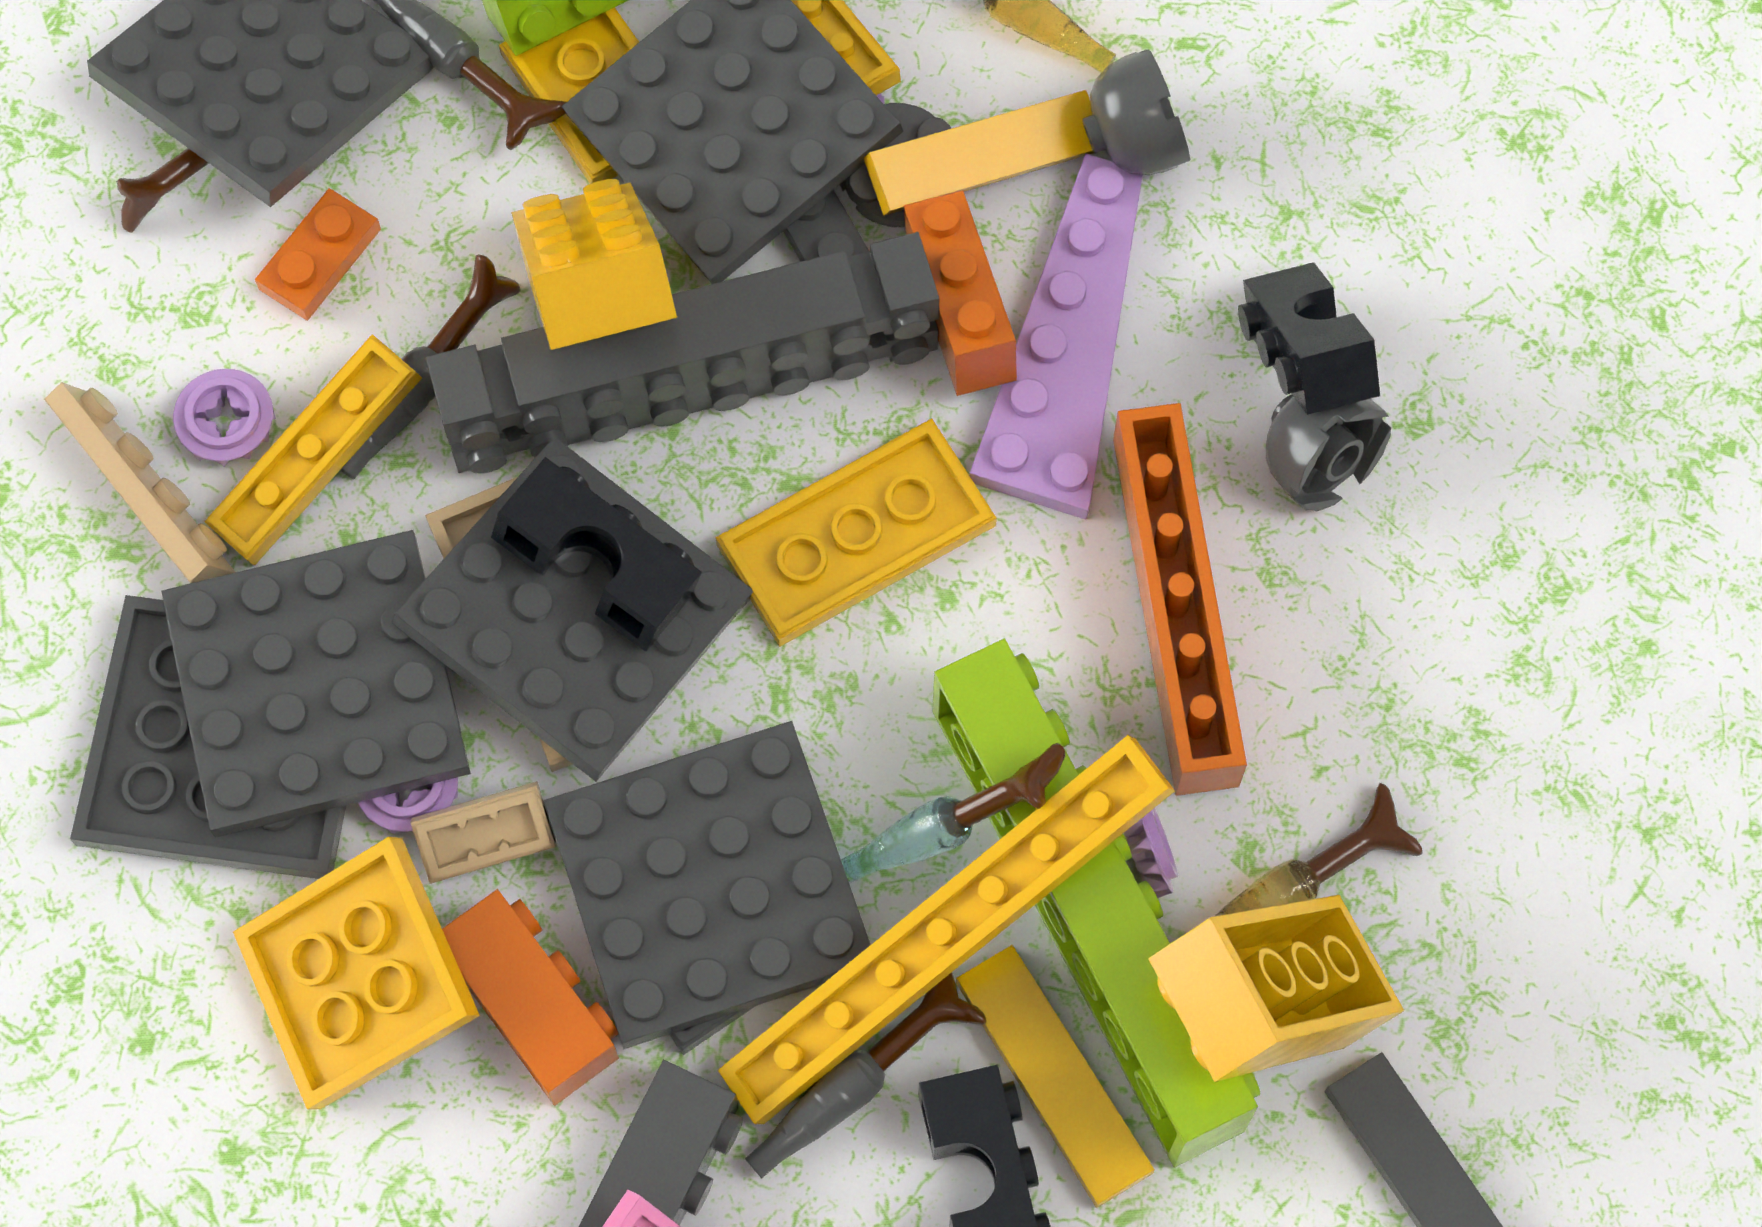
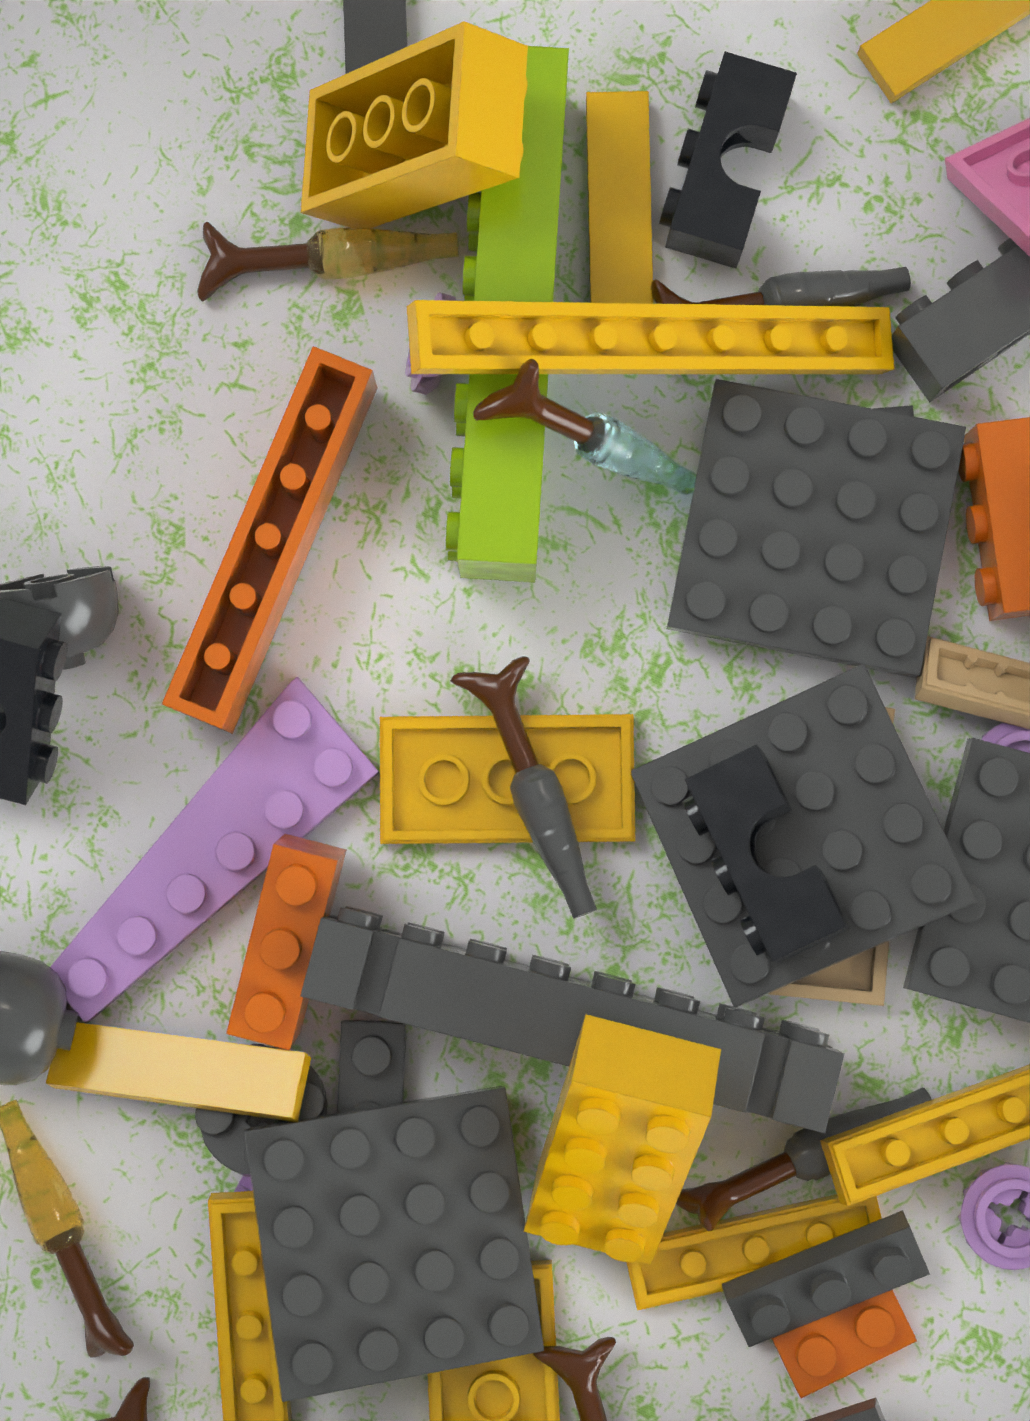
camera: 150 degrees left, 15 degrees up
(357, 282) = (825, 1279): none -> dark grey plate
(427, 280) = (699, 1261): none -> yellow tile
(828, 525) = (534, 786): none -> dark grey piece

